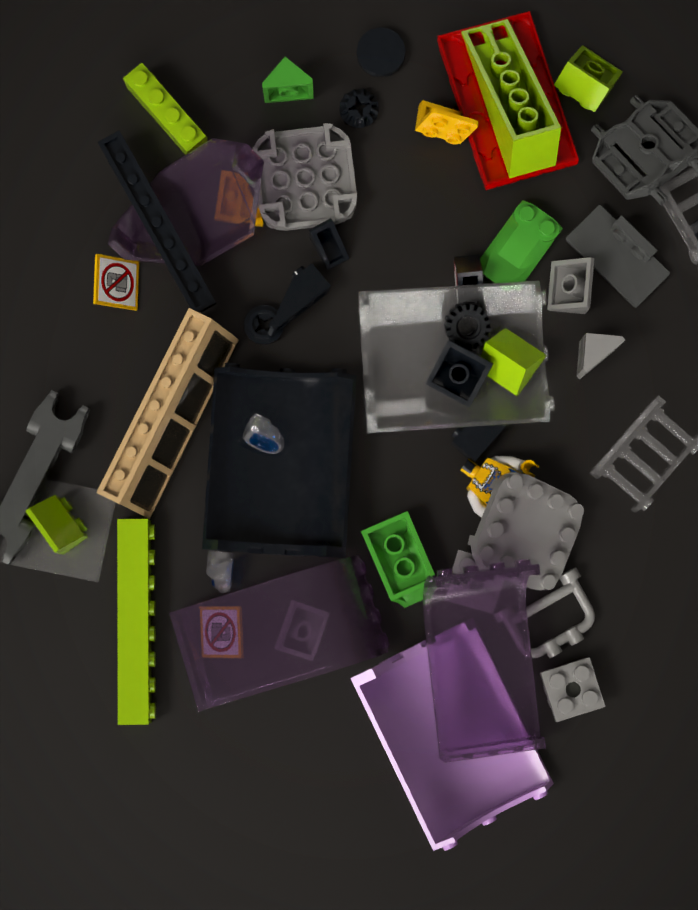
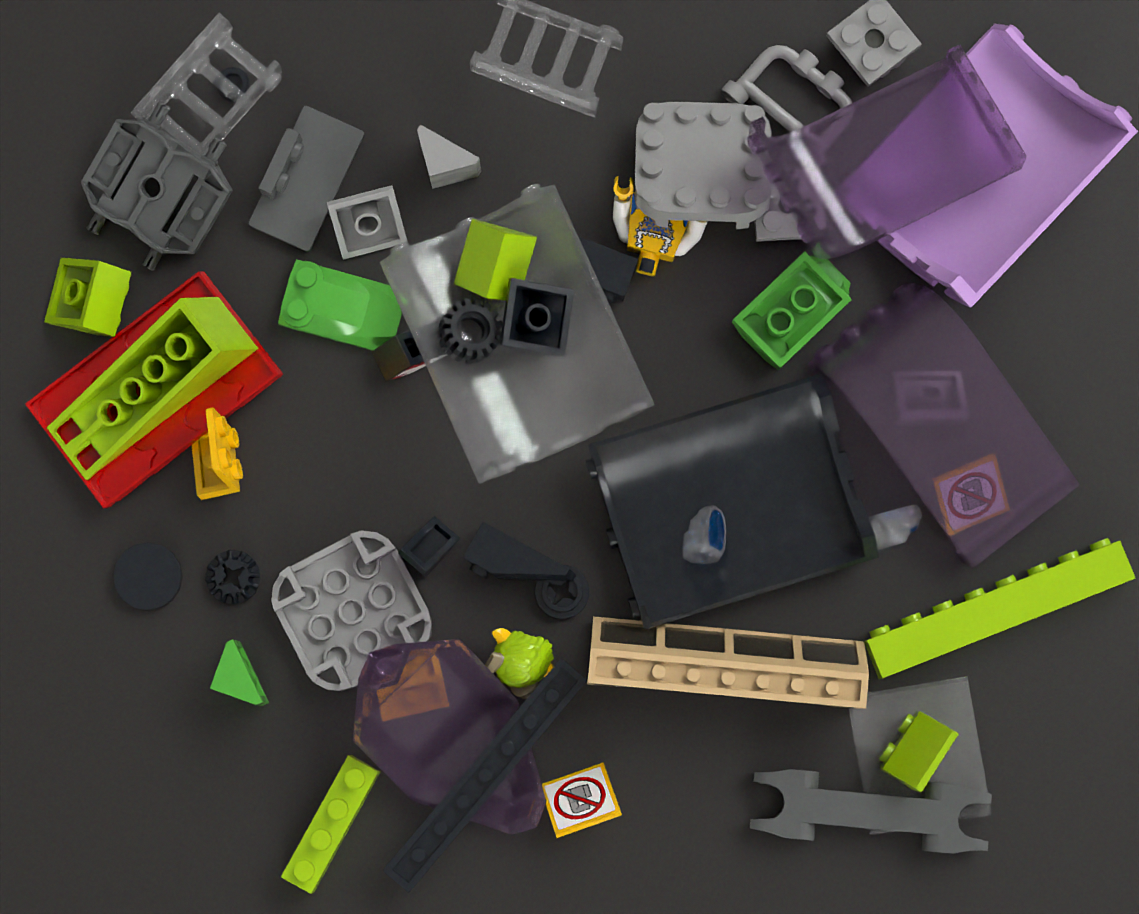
camera: 110 degrees left, 0 degrees up
(226, 275) = (520, 660): none -> lime hair

